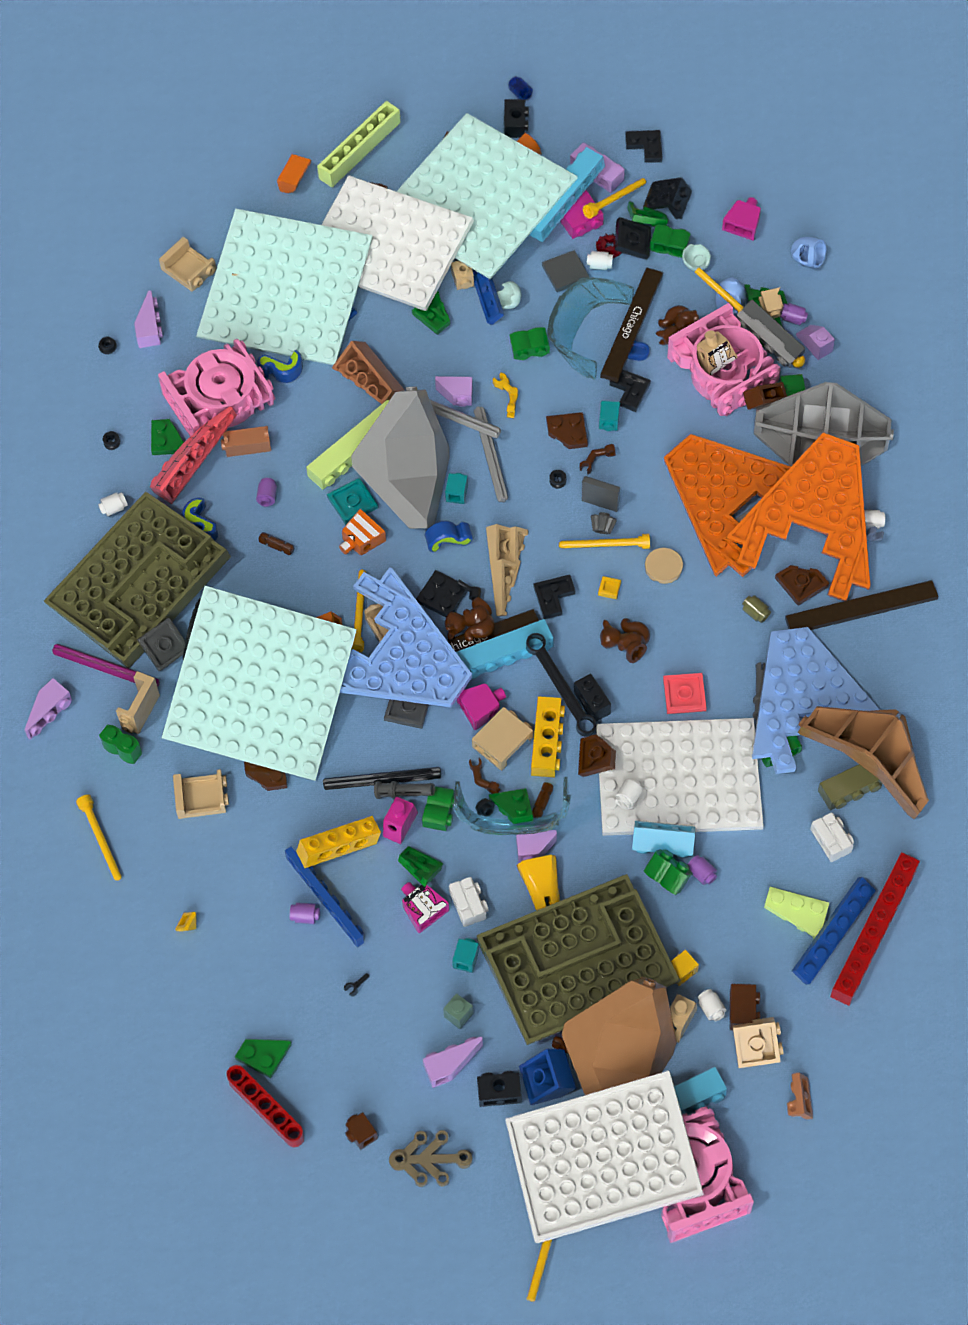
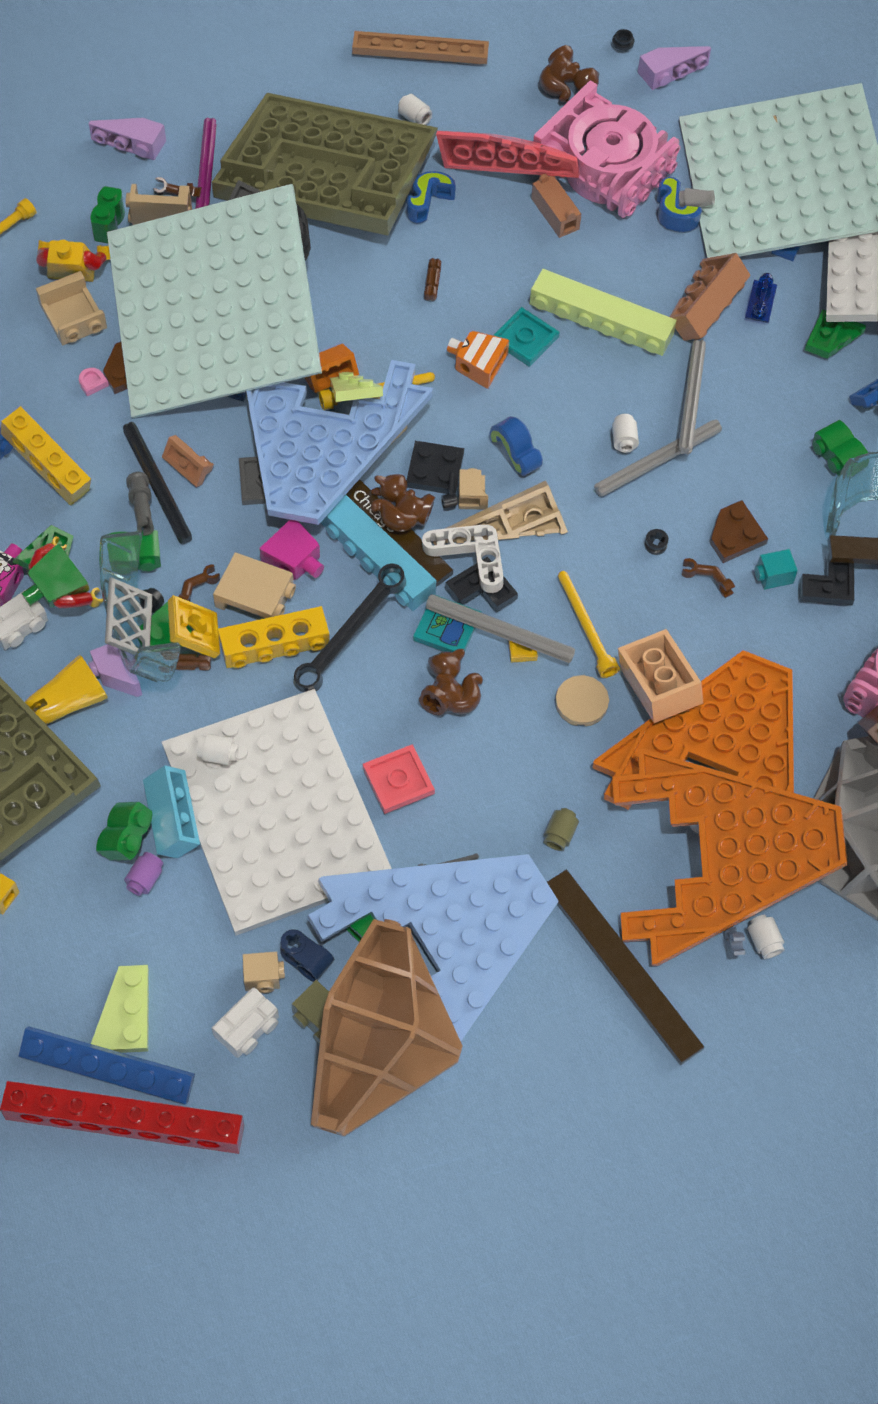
camera: 65 degrees right, 0 degrees up
(50, 481) = (420, 47): none -> medium nougat plate
(111, 445) = (500, 78): black bush -> none
(115, 688) = (174, 189): none -> reddish brown arm
(123, 393) = (562, 71): none -> reddish brown animal
(155, 783) = (69, 258): none -> yellow torso
(164, 437) = (525, 126): green wing -> none
(187, 265) = (770, 73): tan panel -> none
(266, 492) = (496, 246): medium lavender brick -> none
(270, 799) = (92, 381): none -> bright pink tile
(284, 349) = (696, 197): none -> light grey cone
(369, 617) = (353, 387): none -> yellowish green wing
(374, 752) = (186, 461): none -> nougat hinge
(384, 344) = (761, 299): none -> clear blue hinge
(401, 817) = (103, 511): dark pink torso -> none
(406, 457) = (594, 359): light grey panel -> none
(451, 859) = (58, 580): none -> green torso
(455, 389) = (732, 392): lavender slope -> none
(456, 488) = (589, 434): teal brick -> none
(464, 465) = (625, 433): none -> white brick
(473, 574) = (472, 490): none -> tan window
(504, 810) = (129, 592): none -> light grey window
(513, 393) = (767, 442): yellow piece -> none
(523, 782) = (204, 622): none -> yellow piece
(526, 583) = (480, 547): none -> white beam
(575, 627) = (443, 632): none -> teal tile
(592, 697) = (347, 671): black brick -> none
(593, 594) = (500, 628): none -> light grey axle
(595, 756) = (264, 698): reddish brown plate -> none
(600, 493) = (648, 589): dark grey tile -> none
(602, 523) = (610, 608): dark grey piece -> none
(670, 509) = (660, 675): none -> light nougat brick
(795, 788) = (308, 958): none -> dark blue piece
(799, 817) = (262, 971): none -> tan brick
(801, 583) = (625, 875): reddish brown plate -> none

